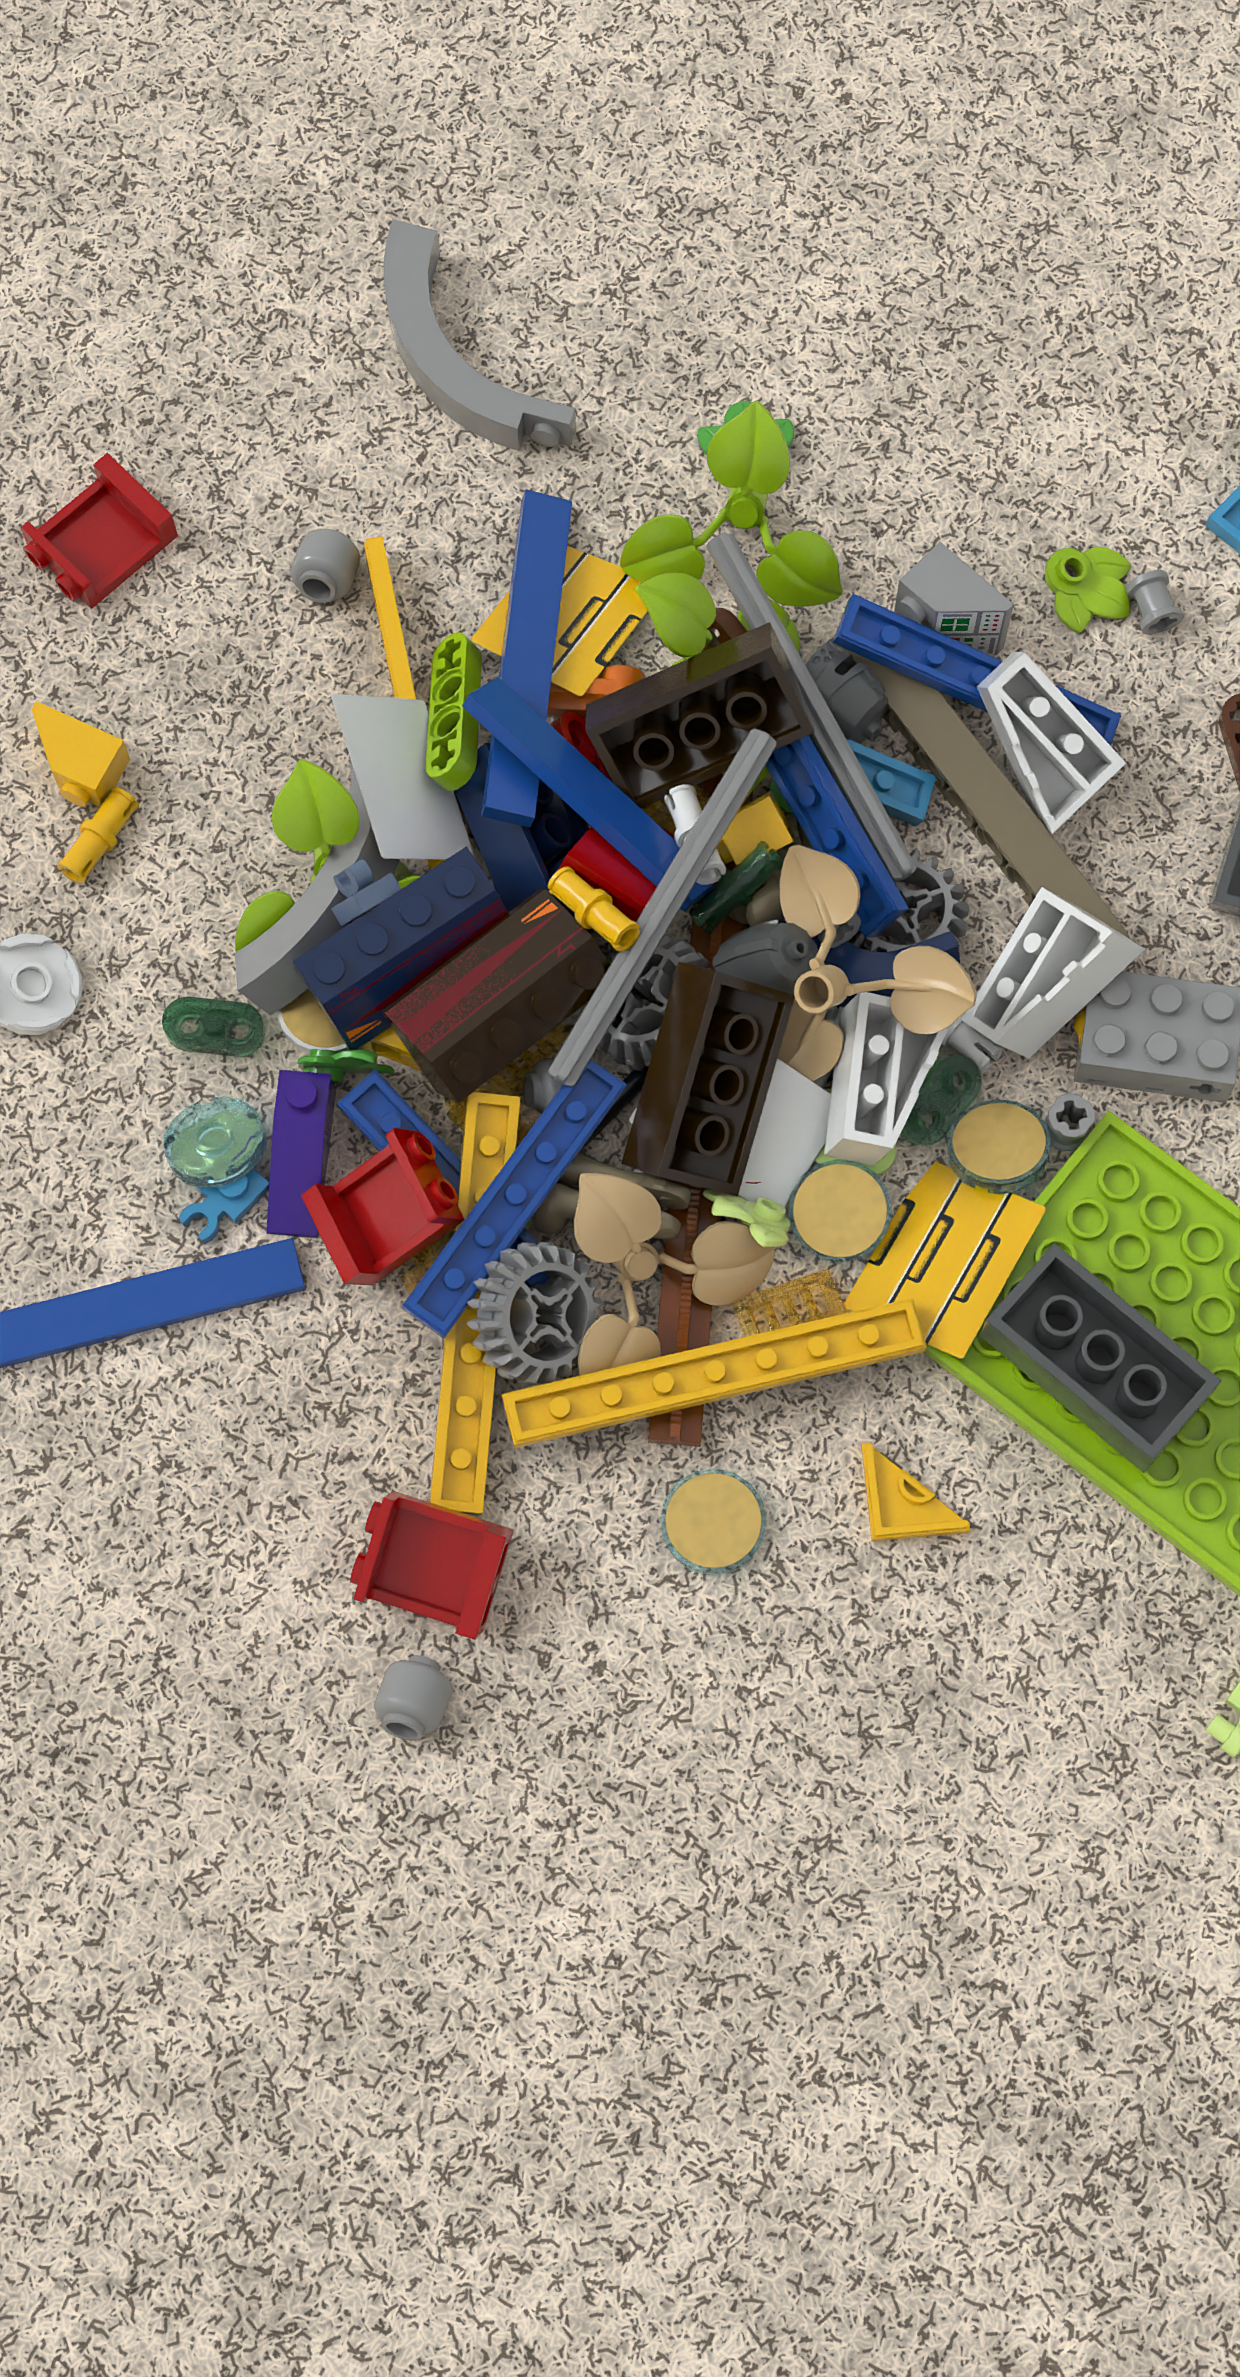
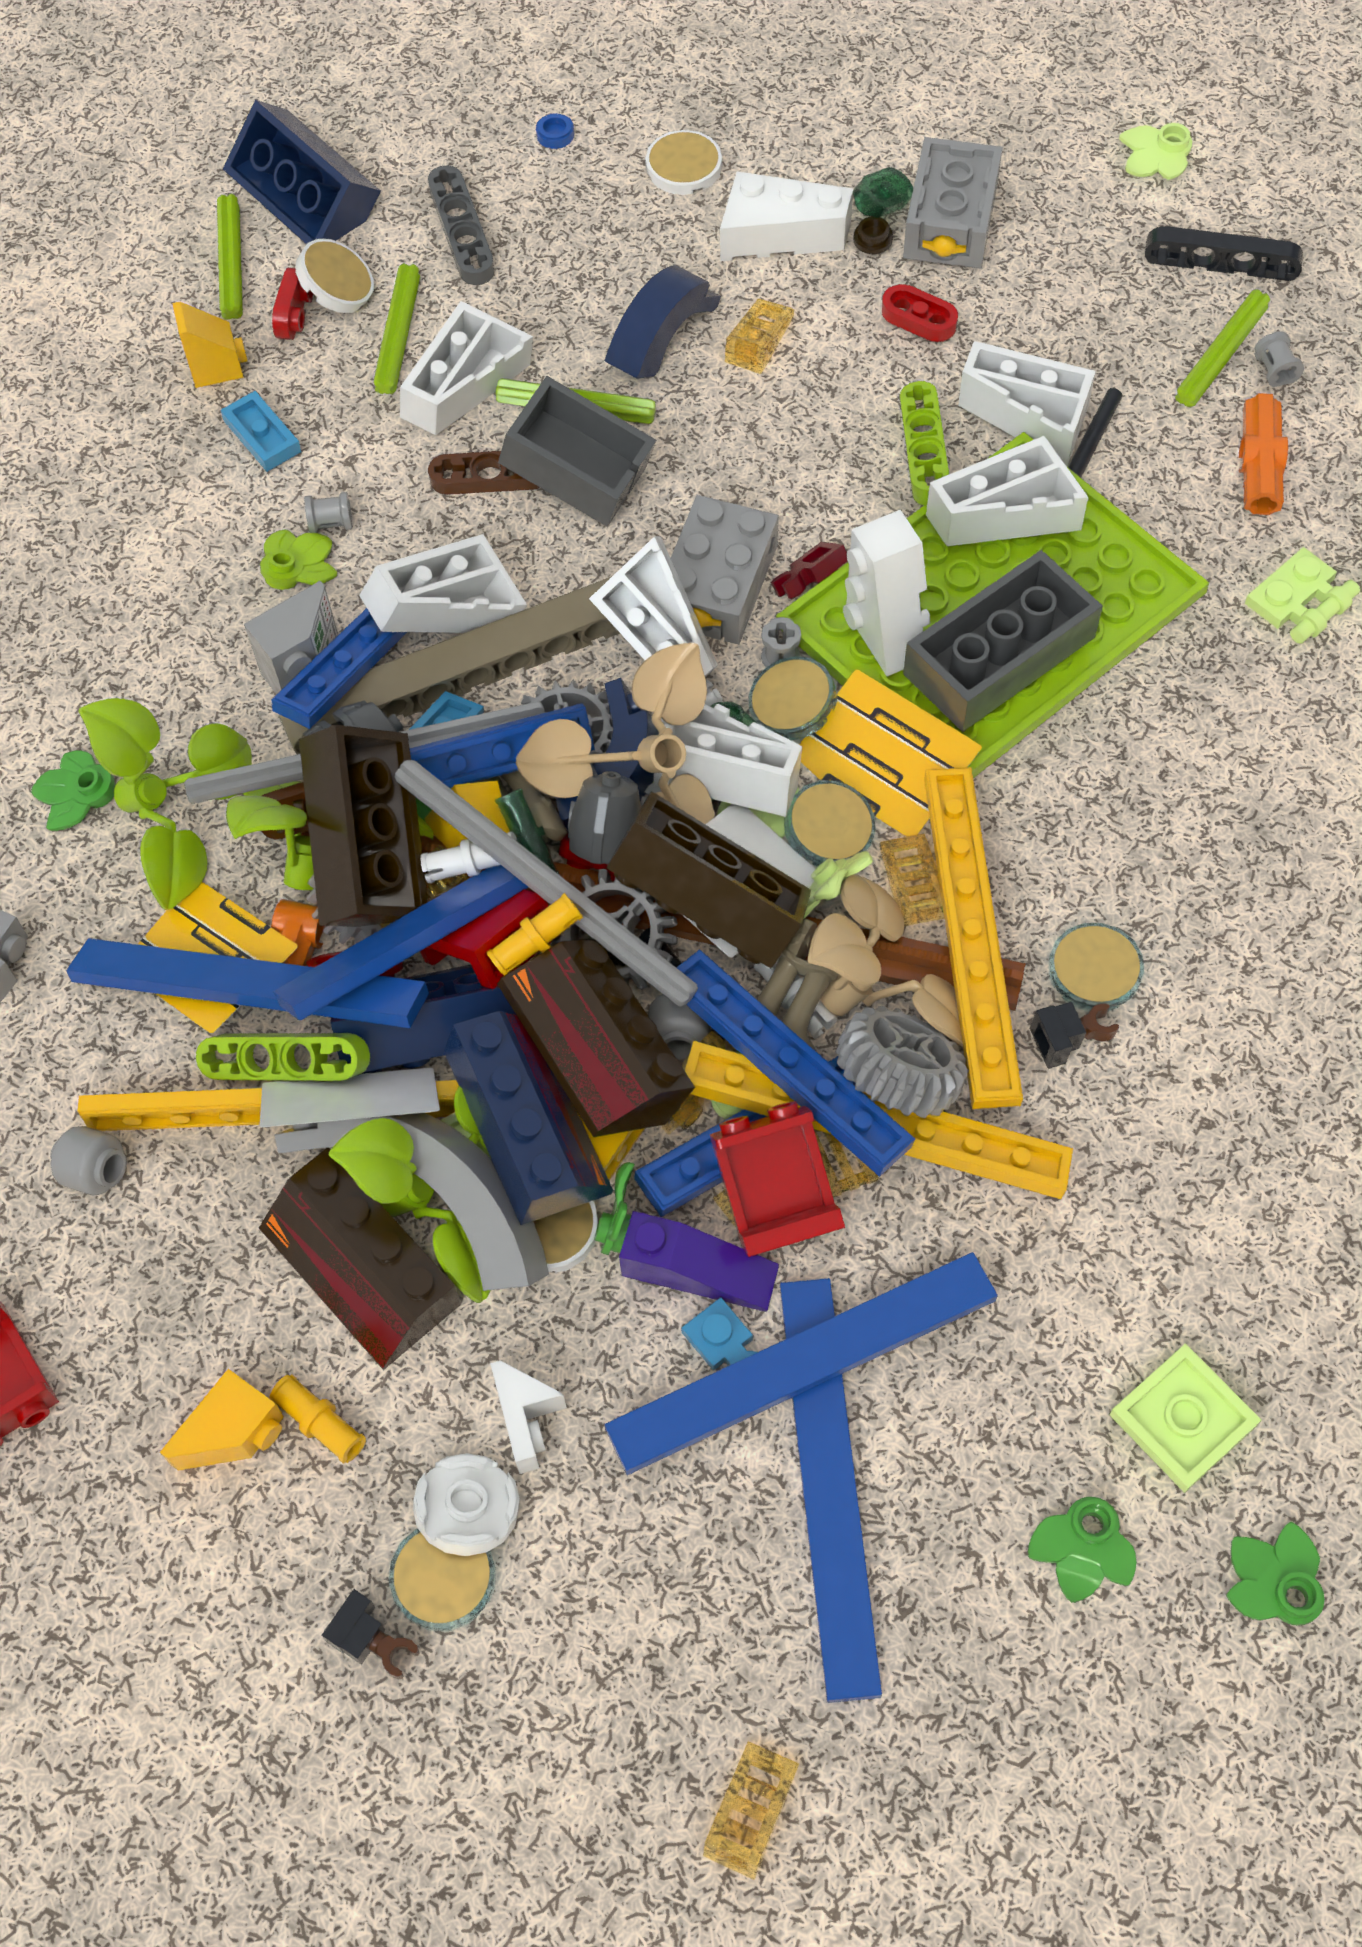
camera: 80 degrees left, 10 degrees down
(53, 1567) = (1084, 1557): none -> bright green plate
(59, 1752) = (1273, 1570): none -> bright green plate
(133, 1007) = (520, 1400): none -> white slope
(203, 1654) = (1185, 1417): none -> yellowish green plate
(209, 1271) = (799, 1363): none -> blue tile
(214, 1142) = (671, 1340): clear light blue tile -> none
(215, 1022) = (549, 1331): clear green plate -> none
(240, 851) = (358, 1260): none -> dark brown slope
(362, 892) = (474, 1131): sand blue tile -> none
(413, 1698) = (1242, 1230): light grey head -> none
(432, 1562) = (1119, 1190): red panel -> none
(622, 1490) = (1060, 1030): none -> black piece
(901, 1505) = (1092, 824): yellow tile -> none
(1124, 1211) = (885, 588): none -> white wedge
(1186, 1141) = (809, 568): none -> dark red plate

